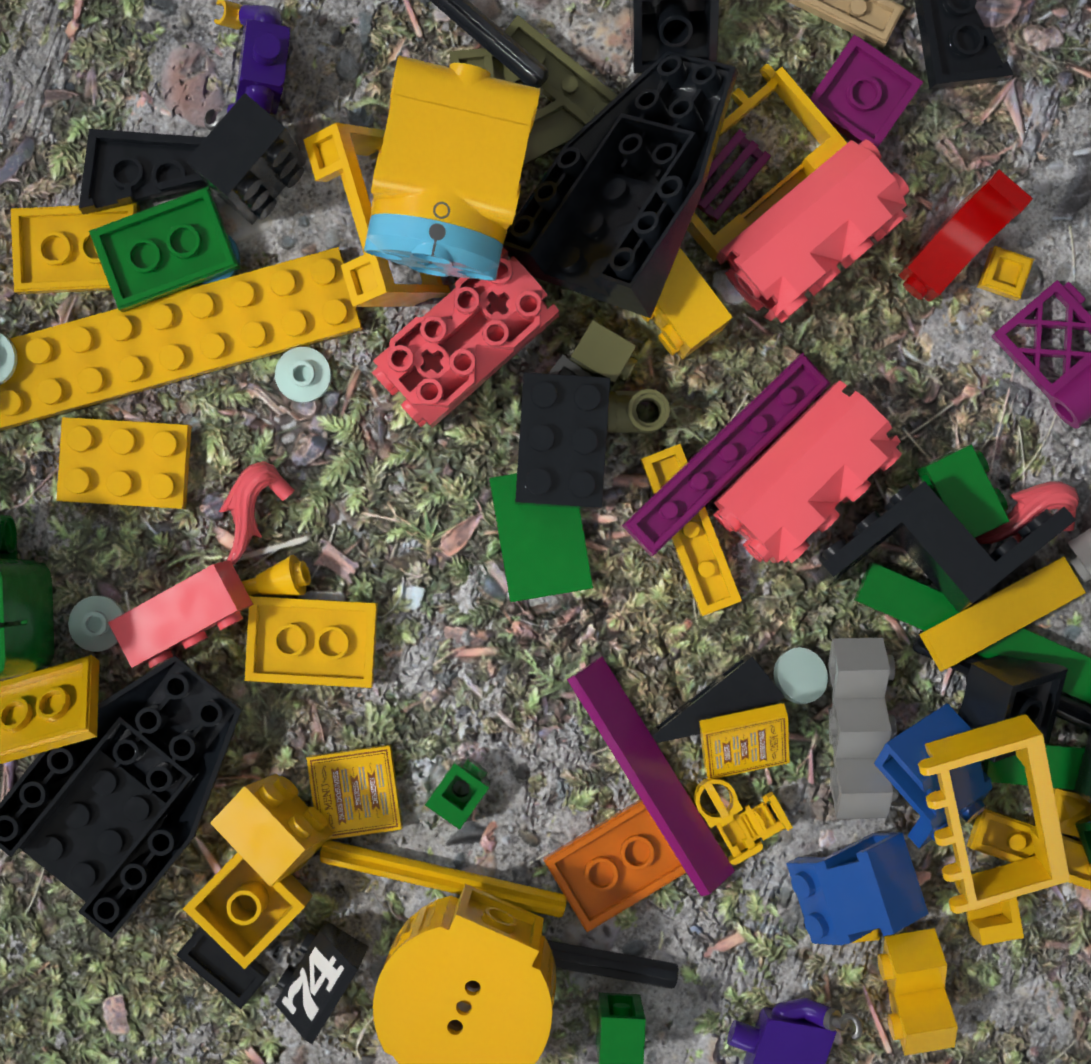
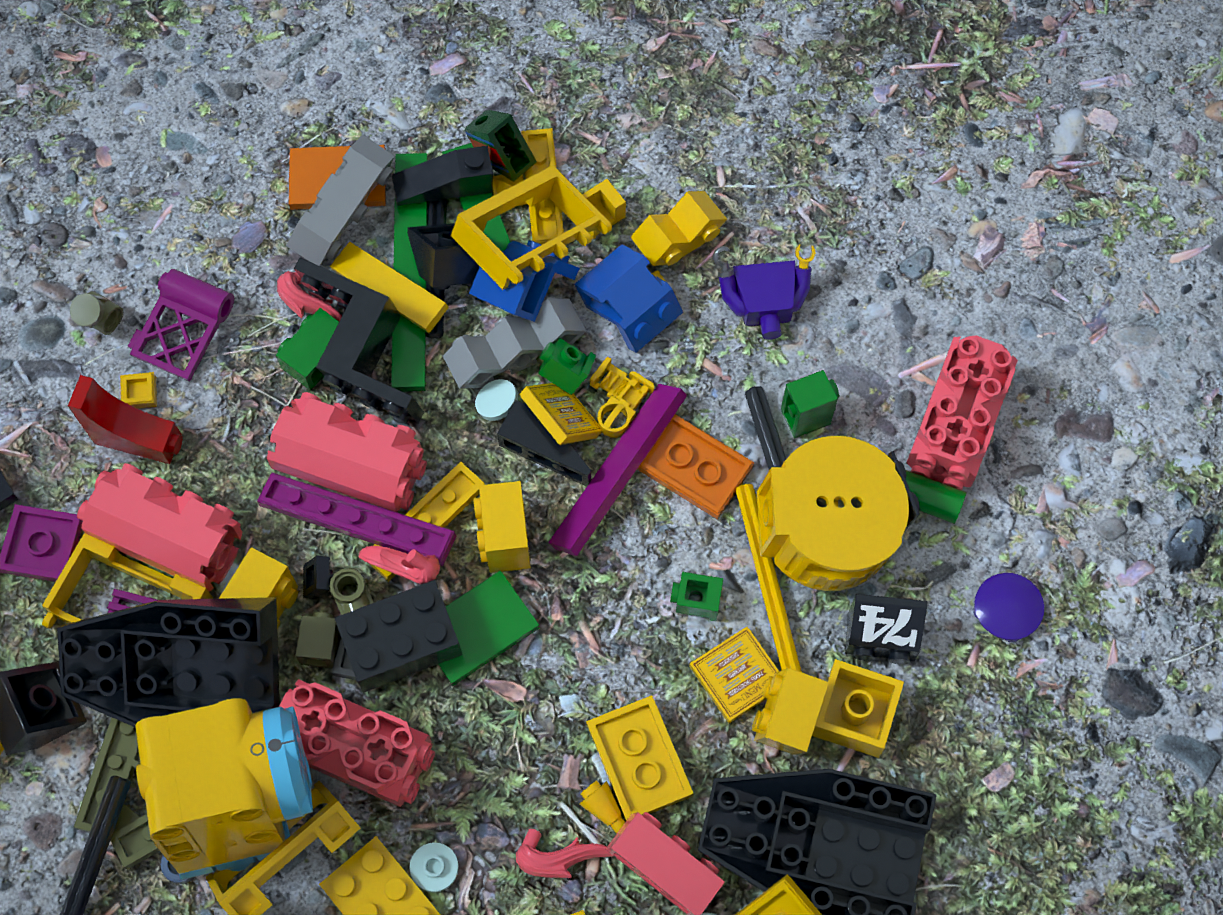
camera: 110 degrees left, 20 degrees down
(220, 969) = (916, 712): black tile -> none
(627, 496) = (411, 566): none -> coral piece
(634, 614) = (502, 527): none -> yellow brick
(678, 382) = (316, 577): none -> black plate
(802, 774) = (565, 365): none -> green brick

